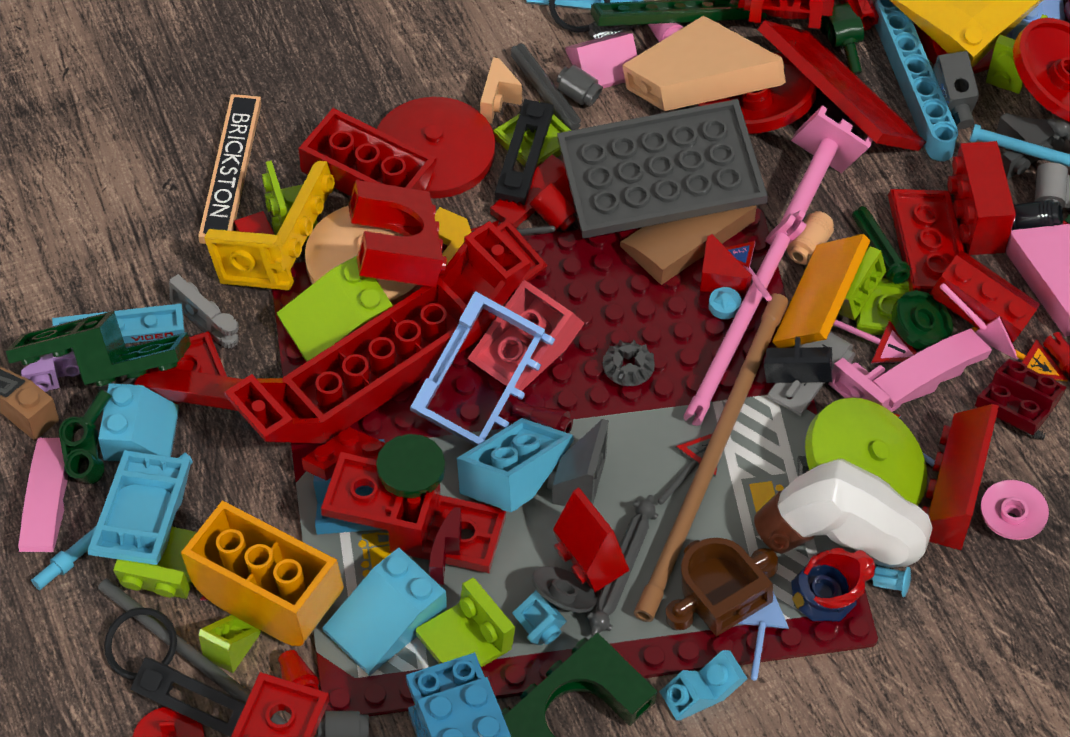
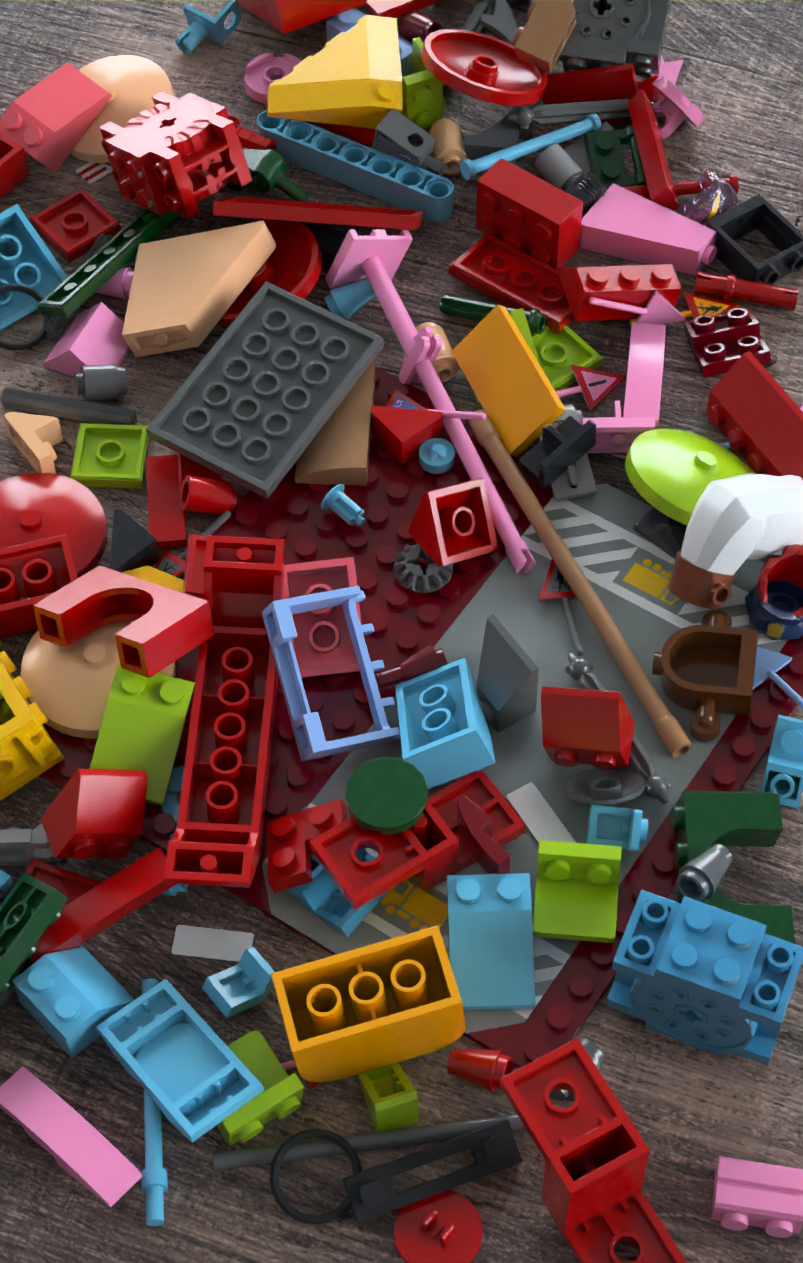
camera: 45 degrees left, 0 degrees up
(84, 449) = (59, 1055): dark green beam -> none
(216, 492) = (240, 985): none -> medium azure bracket
(247, 470) = (211, 943): none -> white sticker
(258, 334) = (97, 814): none -> red slope
(471, 199) = (131, 544): none -> black slope
(510, 577) = (538, 814): none -> white sticker
(514, 184) = (145, 507): black container -> none
(542, 688) = (704, 873): none -> dark grey cone
(625, 282) = (343, 506): none -> medium azure piece
(671, 350) = (454, 523): none -> red slope
(793, 157) = (349, 298): none -> medium azure cone
(921, 320) = (594, 345): dark green tile -> none
(1001, 101) = (448, 144): none -> light nougat head

